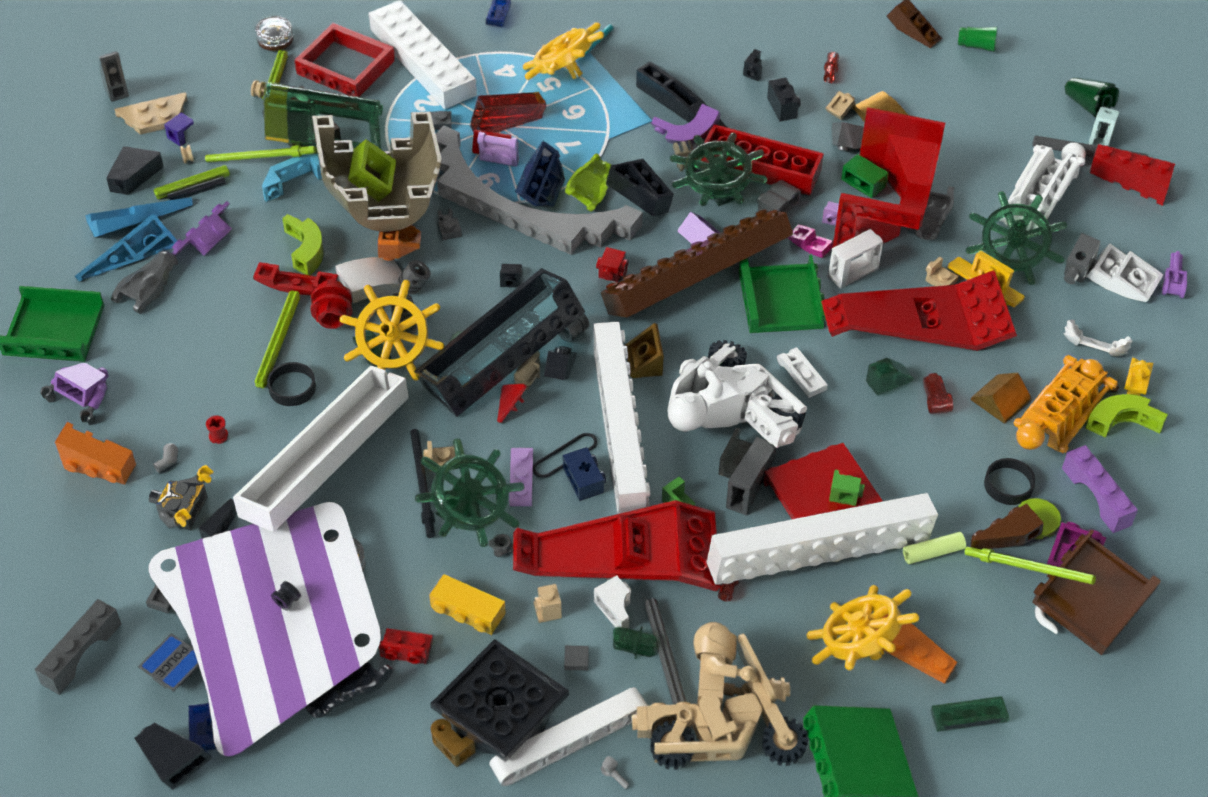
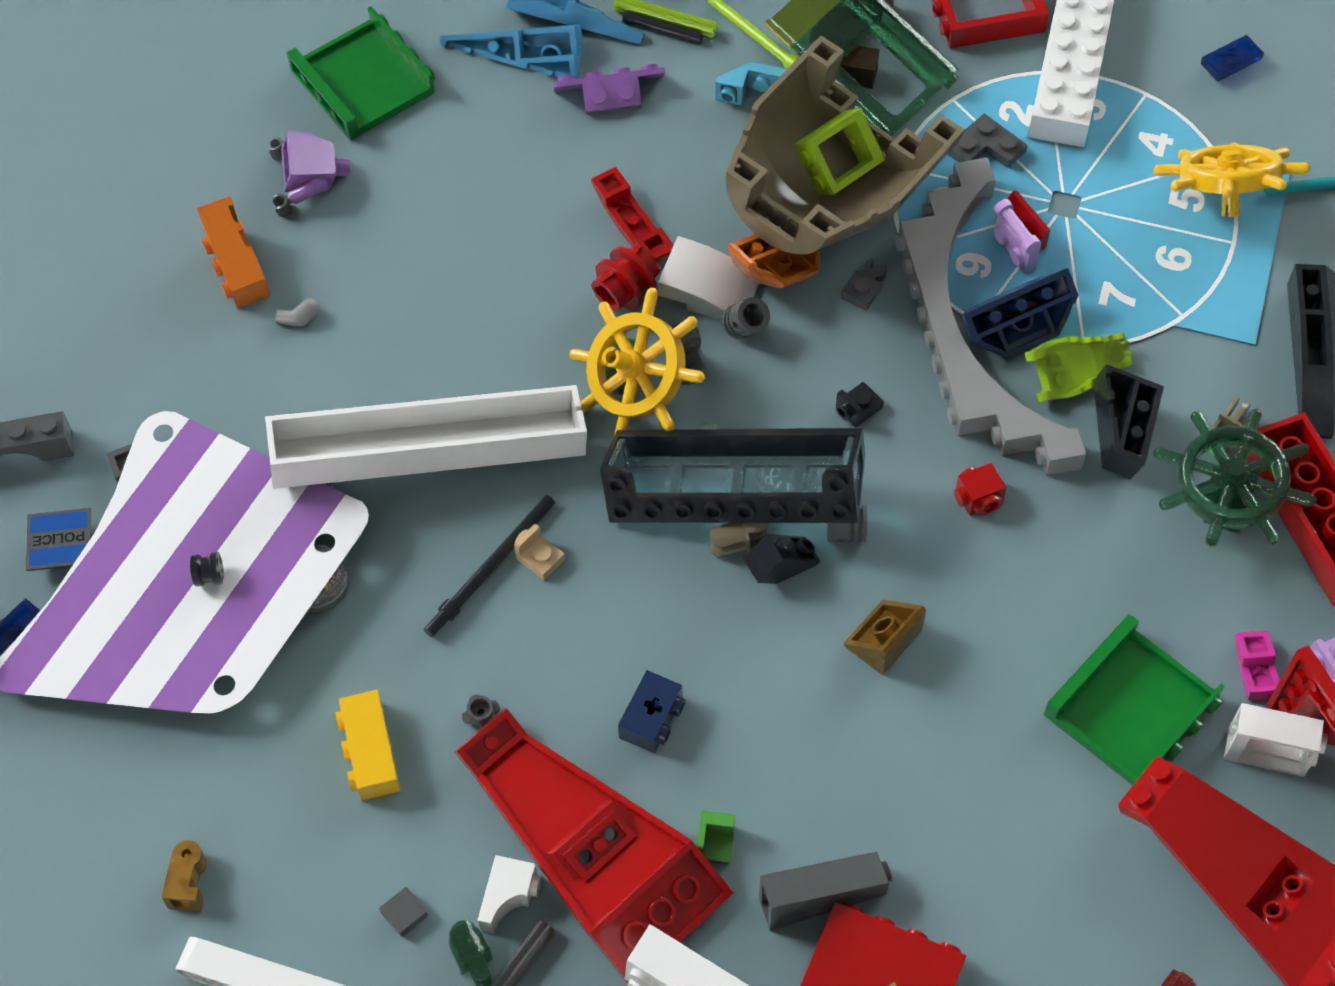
camera: 50 degrees right, 10 degrees up
(146, 282) = (493, 99): dark grey animal -> none
(182, 499) = (252, 375): torso -> none
(216, 427) = (370, 324): red bush -> none
(219, 521) = (248, 430): black slope -> none
(277, 339) = (542, 271): lime axle -> none
(286, 368) = (490, 311): black tyre -> none
(311, 252) = (692, 194): lime arch -> none
(358, 684) = (174, 728): black animal -> none
(406, 646) = (269, 730): red bracket -> none
(461, 504) = (494, 622): clear green piece -> none
(499, 701) = (241, 856): black piece -> none
(506, 111) = (1085, 196): clear red slope -> none
(509, 396) = (684, 550): red piece -> none
(521, 471) = (591, 653): lavender plate -> none
(548, 604) = (442, 824): tan brick -> none
(557, 450) = (669, 658): black piece -> none
(620, 418) = (753, 686): white brick -> none
(696, 228) = (1136, 537): panel -> none
(696, 263) = (1074, 575): reddish brown brick -> none
(699, 125) = (1277, 401): medium lavender arch -> none
(733, 454) = (835, 843): clear smoke panel -> none
(734, 396) = (919, 786): white piece -> none
(779, 197) = (1280, 579): dark grey brick -> none
(802, 372) = (1038, 823): white plate -> none
(887, 375) = (1134, 925): clear green slope -> none

